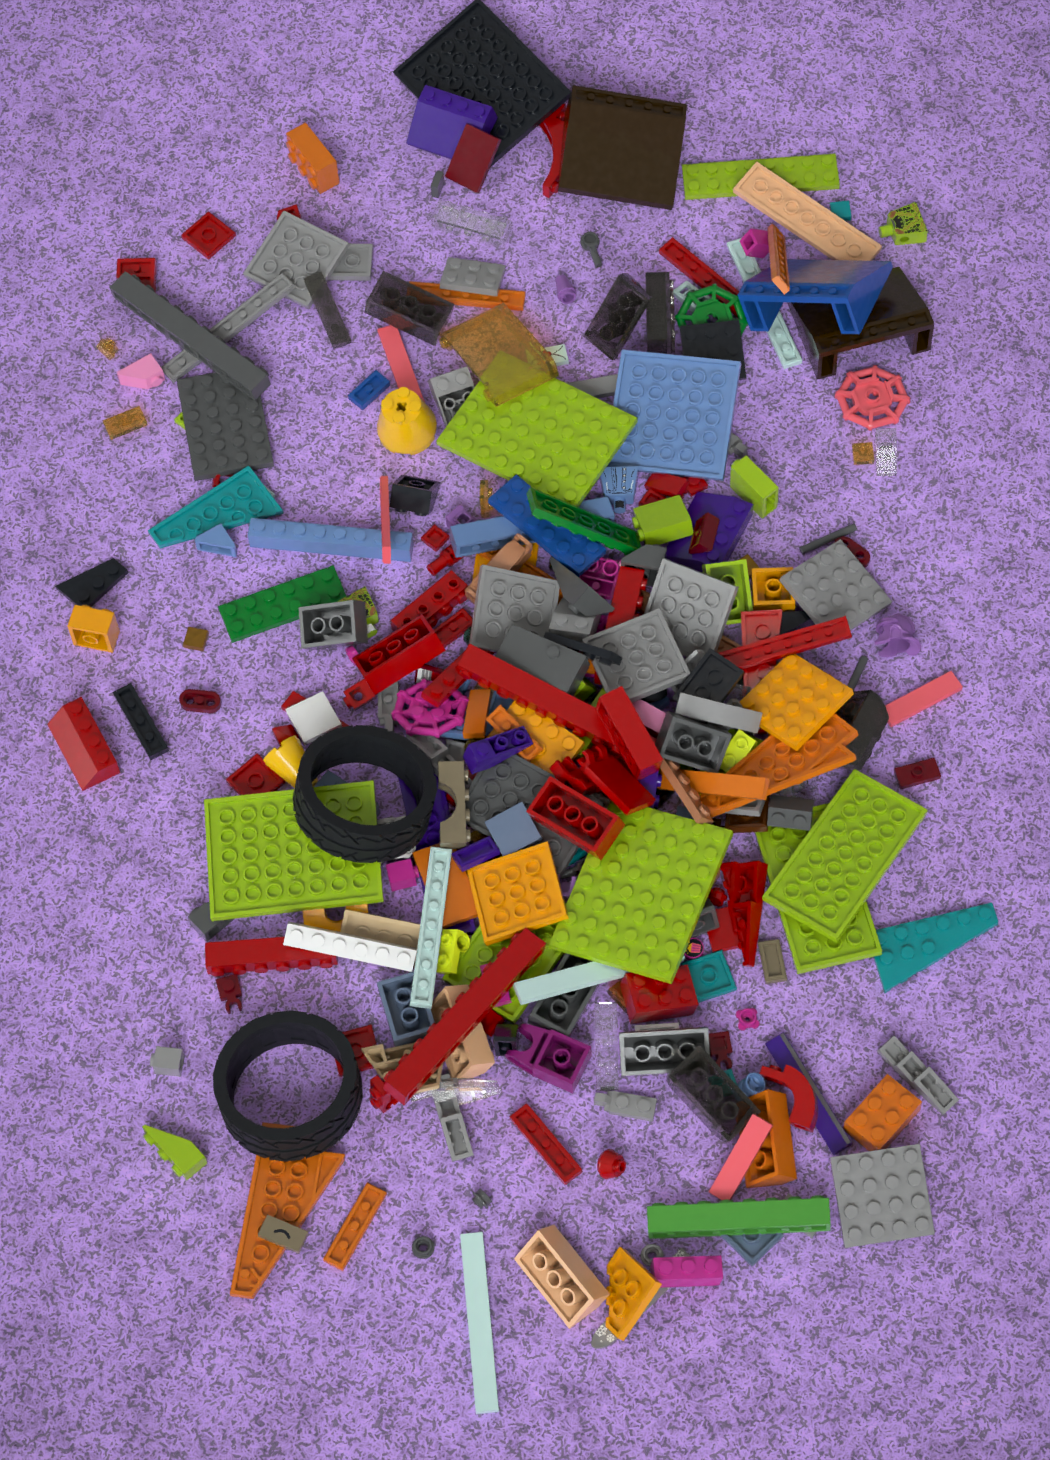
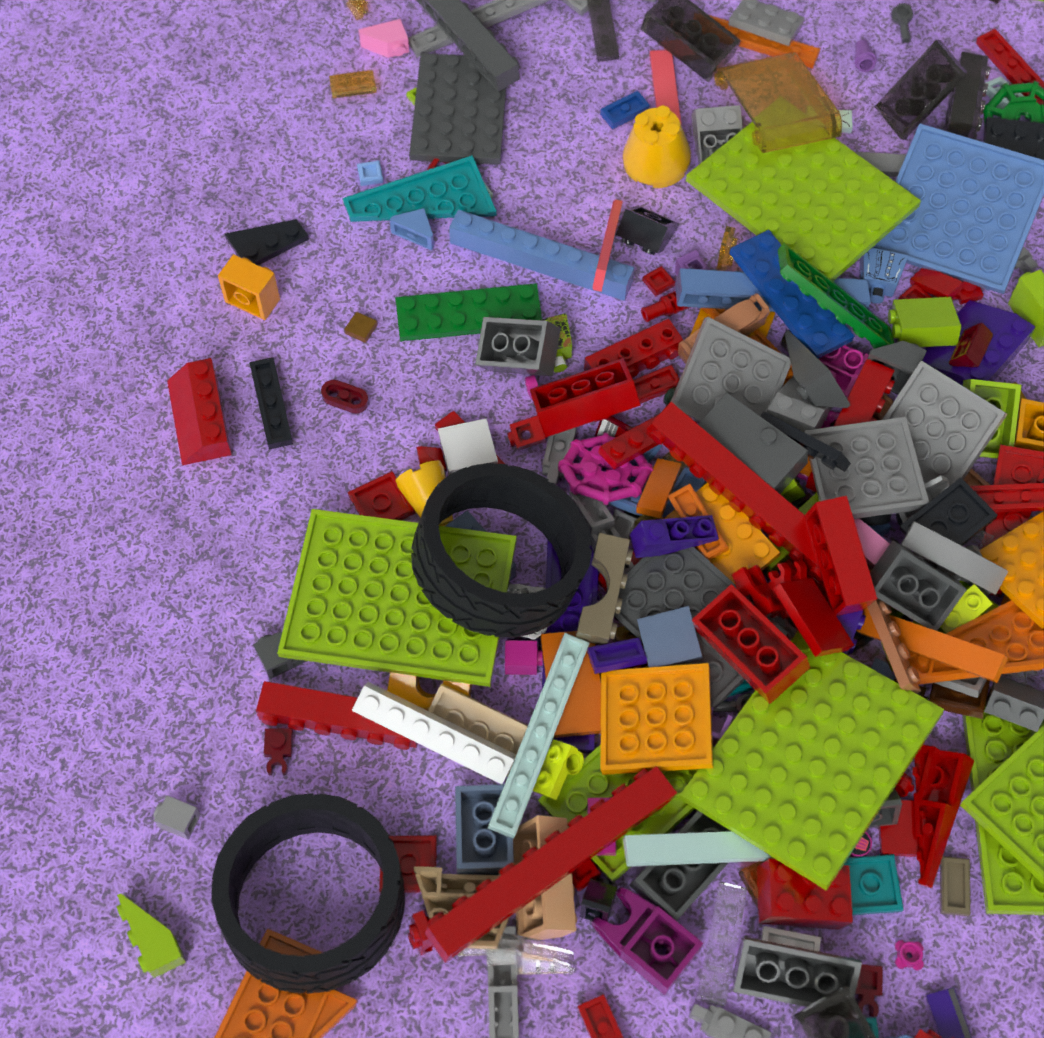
camera: 10 degrees right, 0 degrees up
(163, 501) = (370, 173): none -> light blue tile

